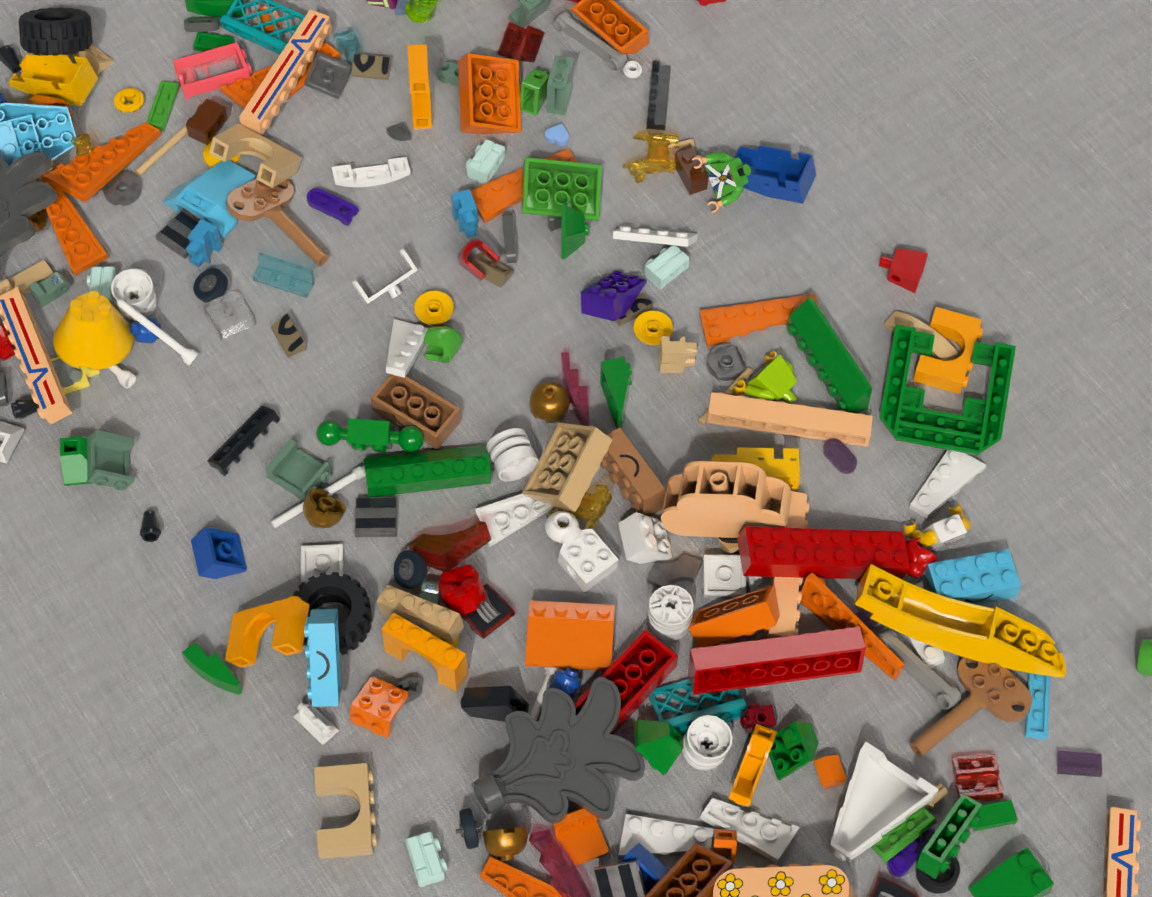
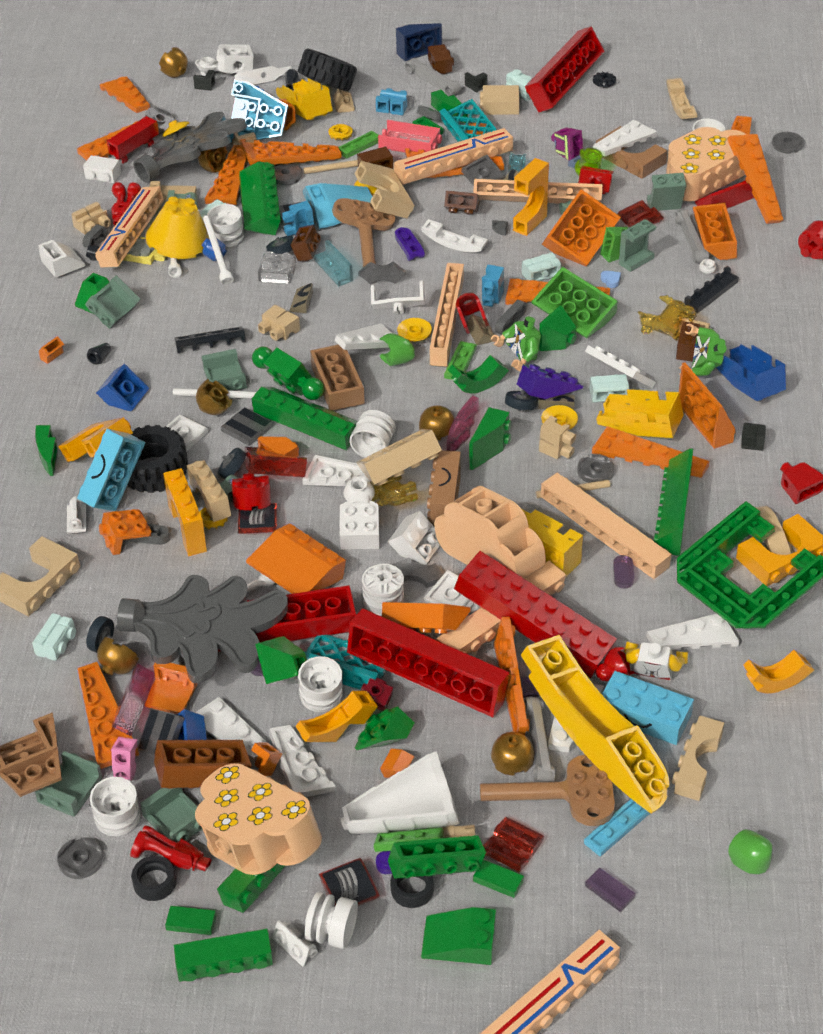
camera: 40 degrees right, 15 degrees down
(82, 144) = (281, 135): clear yellow wheel -> none
(98, 544) = (51, 350): none -> orange piece
(133, 237) = (260, 198): none -> green slope
(147, 28) = (391, 101): none -> dark azure hips
(235, 267) = (306, 243): none -> reddish brown brick
(297, 380) = (279, 323): none -> tan hips
(337, 262) = (389, 272): none -> flat silver tile
(342, 124) = (461, 201): none -> reddish brown brick
(399, 72) = (557, 192): none -> light nougat brick
(435, 523) = (279, 445): none -> orange slope
(446, 22) = (592, 175): none -> red brick
(451, 272) = (446, 315): none -> light nougat brick
(492, 702) = (197, 564): black slope -> none
(504, 316) = (461, 357): none -> bright green tile
(545, 324) = (481, 378): none -> green arch
(549, 260) = (523, 341): none -> torso
(566, 681) = (261, 586): blue head -> none
(603, 330) = (520, 400): none -> black wheel
(721, 279) = (642, 416): none -> yellow piece
(771, 381) = (614, 492): lime torso -> none
(772, 243) = (704, 409): none -> orange slope
(830, 244) = (753, 436): none -> pearl dark grey panel
(907, 695) = (512, 753): none -> pearl gold cylinder
(1045, 476) = (780, 675): none -> light orange arch
(1056, 621) = (691, 776): none -> tan arch

